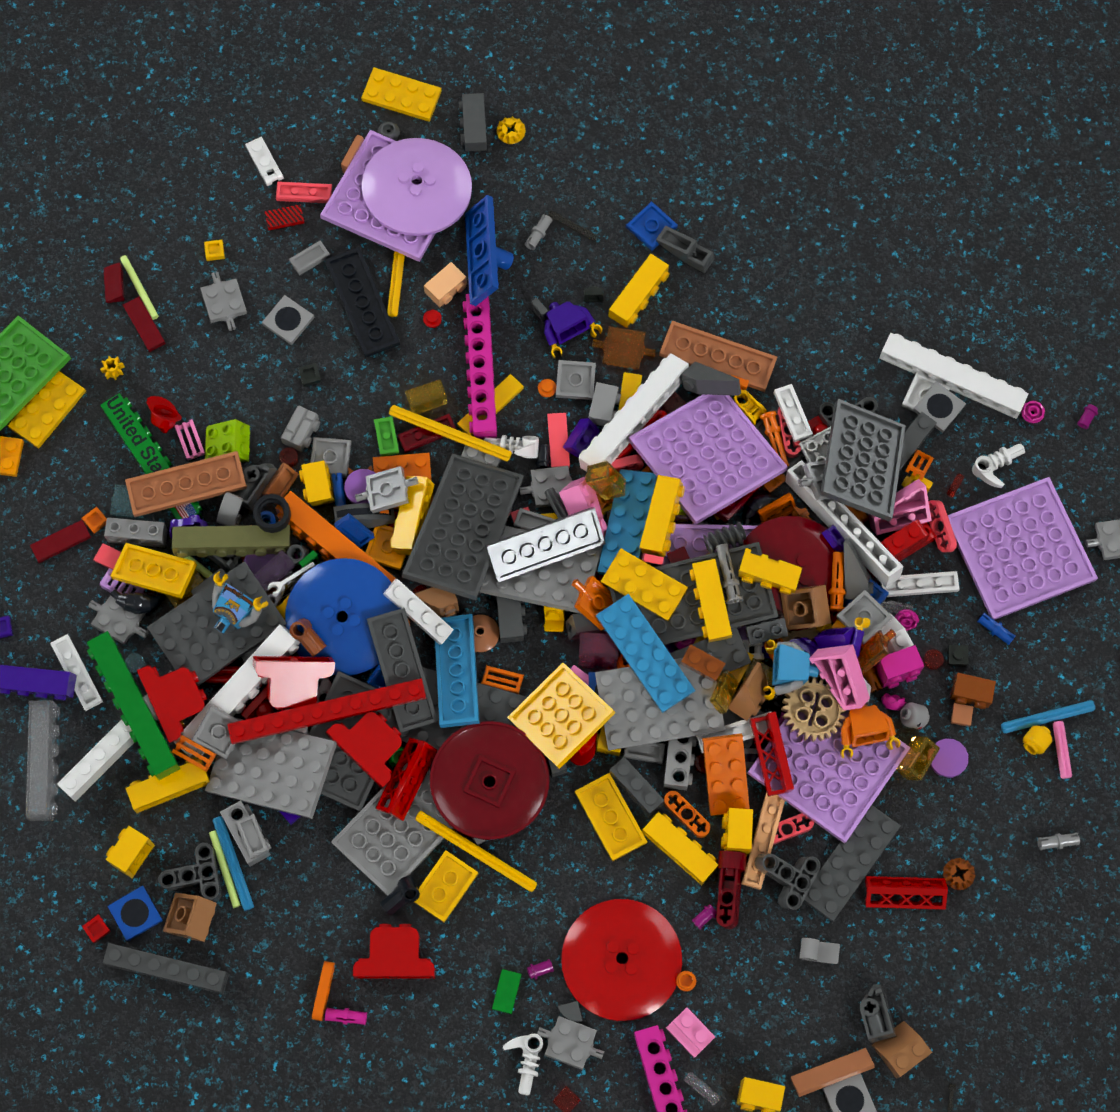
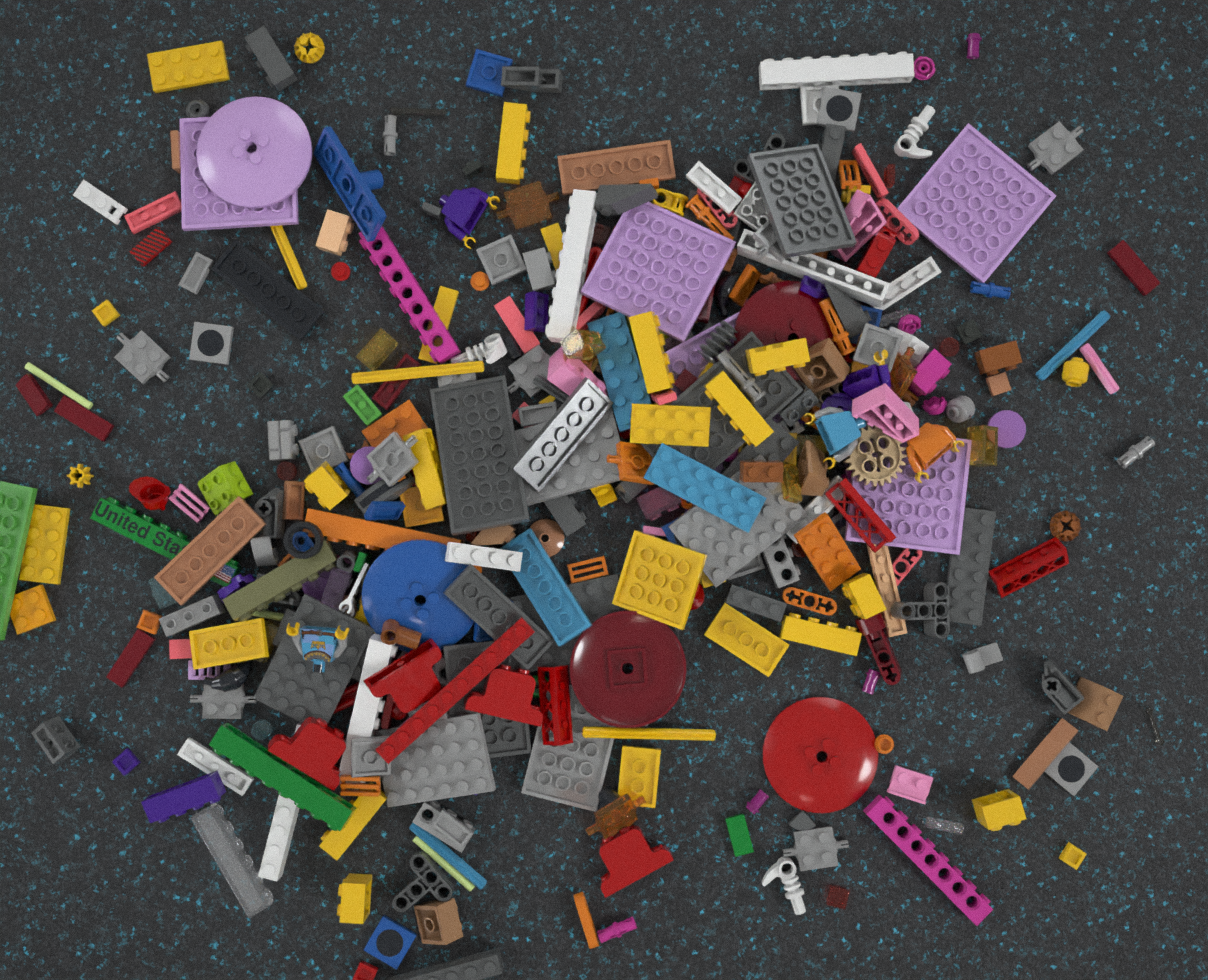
camera: 25 degrees left, 15 degrees up
(404, 905) = (615, 816): none -> clear orange plate
(939, 472) = (869, 171): none -> coral tile

